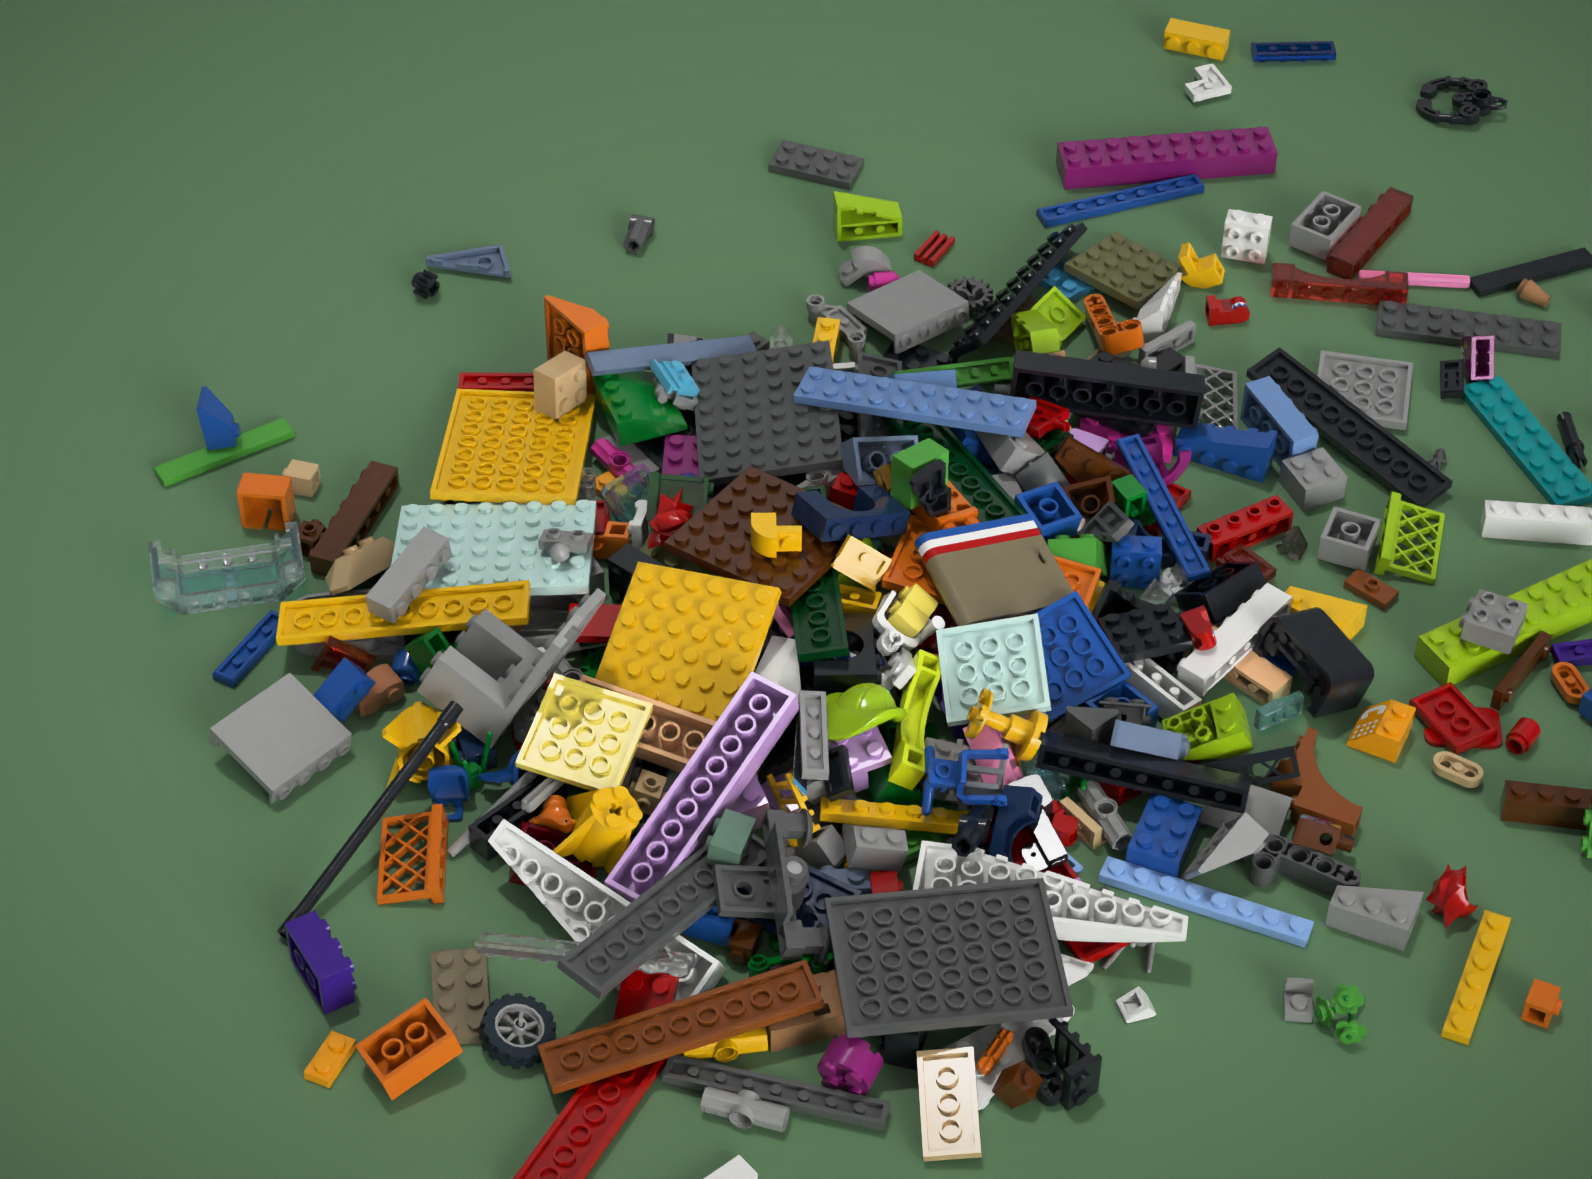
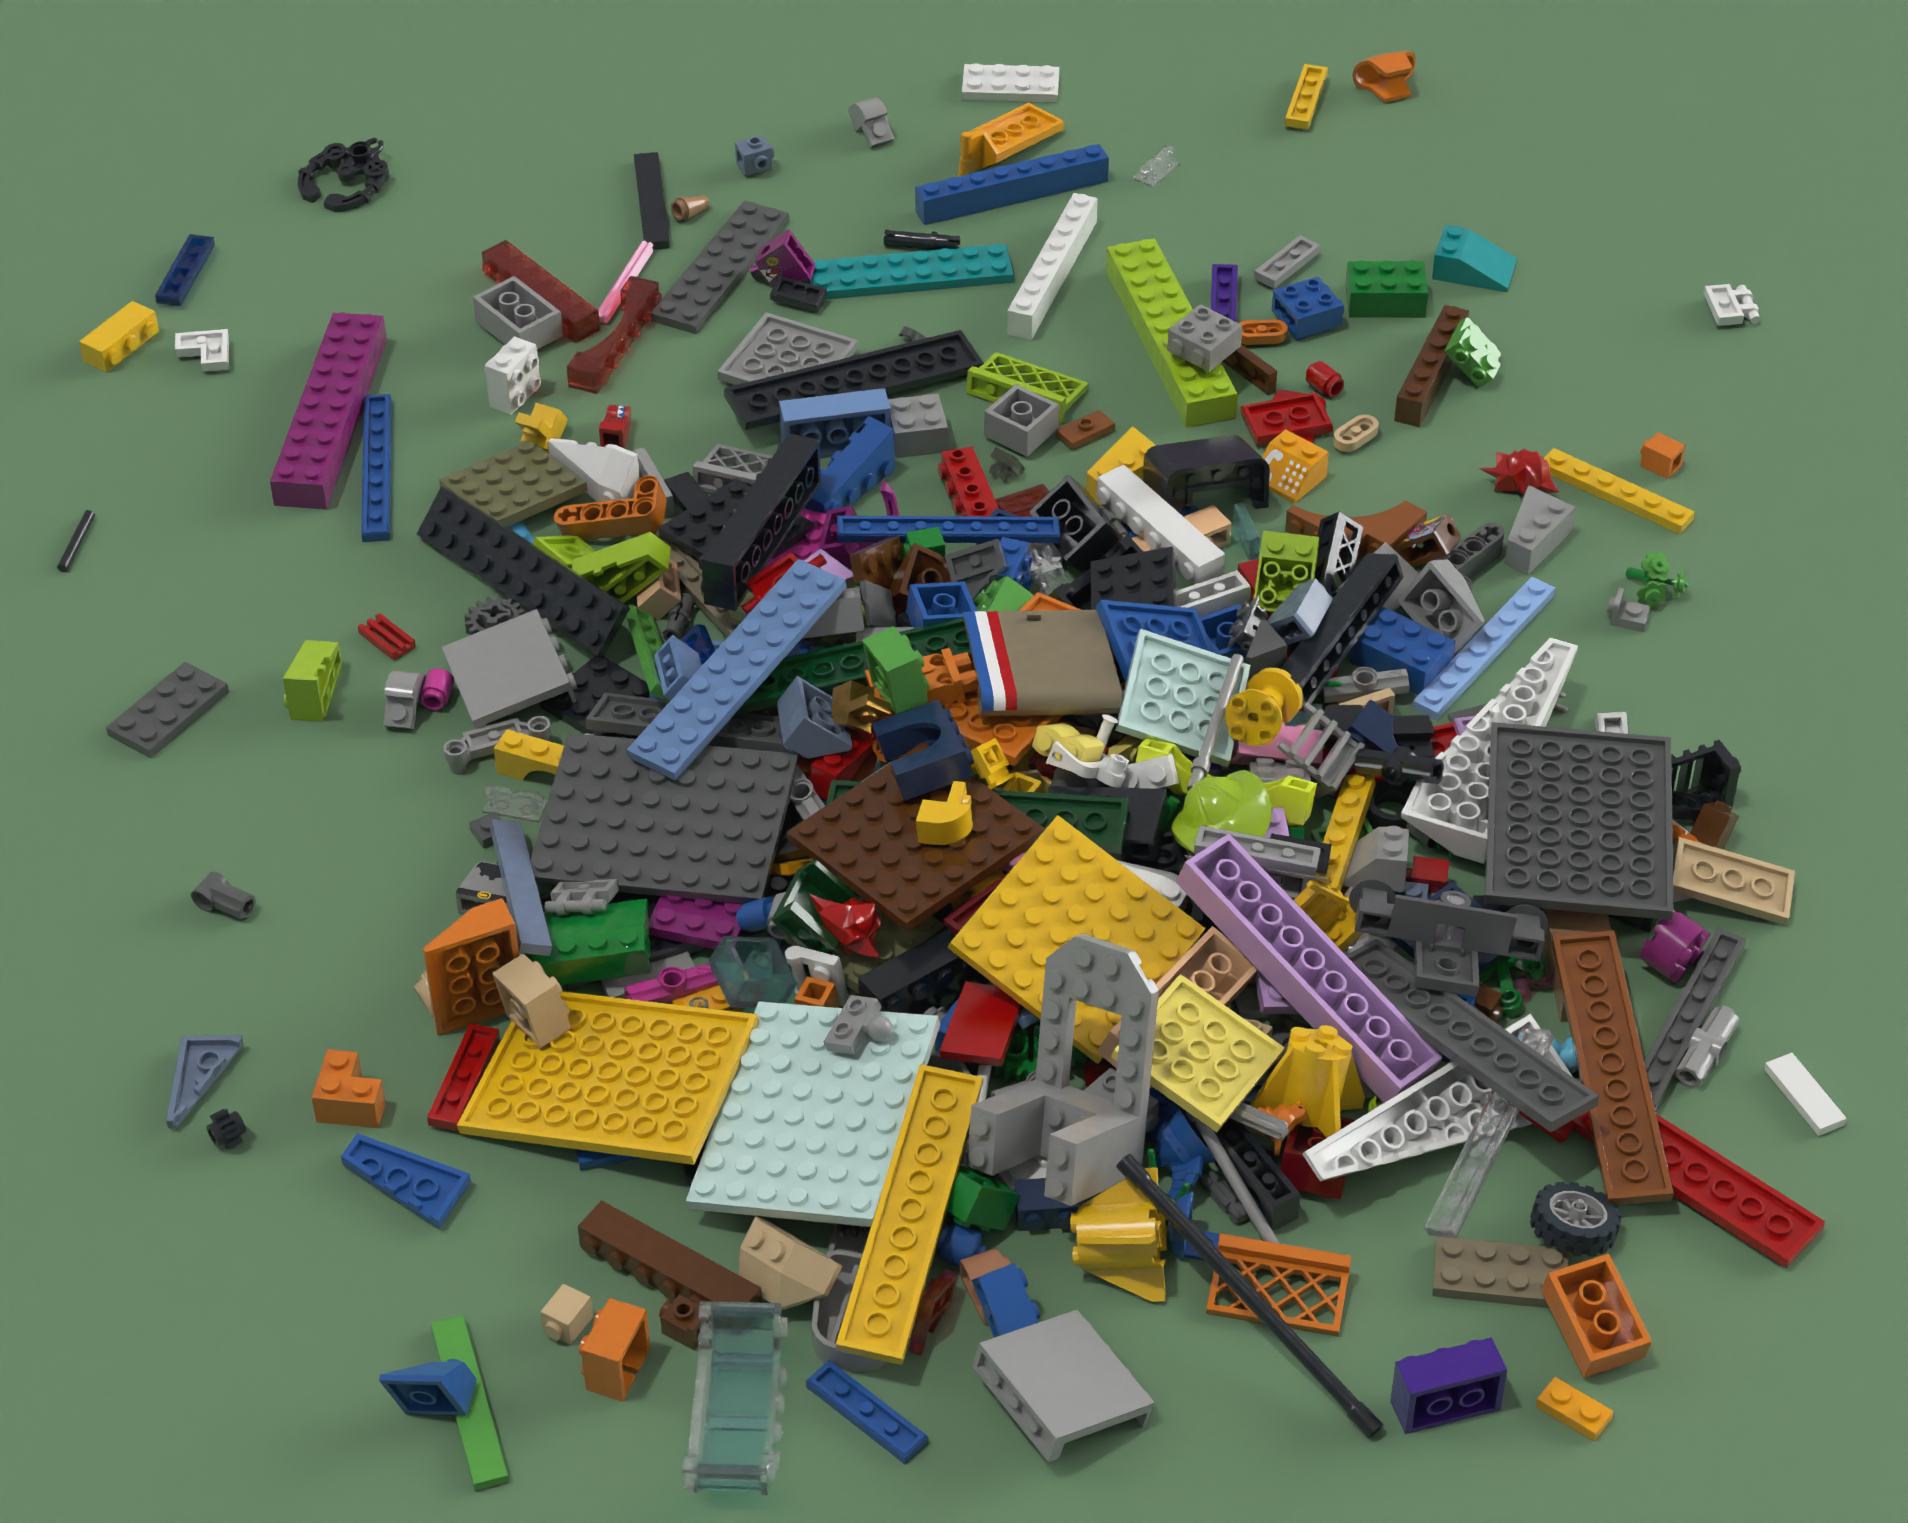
camera: 75 degrees left, 0 degrees up
(406, 380) = (412, 1180): none -> blue wing
(408, 575) = (874, 1179): light grey brick -> none
(474, 326) = (345, 1096): none -> orange brick
(674, 377) = (568, 887): medium azure plate -> none
(730, 838) = (1381, 959): sand green brick -> none
(918, 695) = (1201, 764): none -> light grey bar
(931, 488) = (935, 661): black slope -> none
(952, 774) = (1339, 754): blue piece -> none
(977, 79) = (76, 541): none -> black bar
(1149, 362) = (715, 488): light grey hinge -> none
(1199, 628) = (1160, 535): red leg -> none

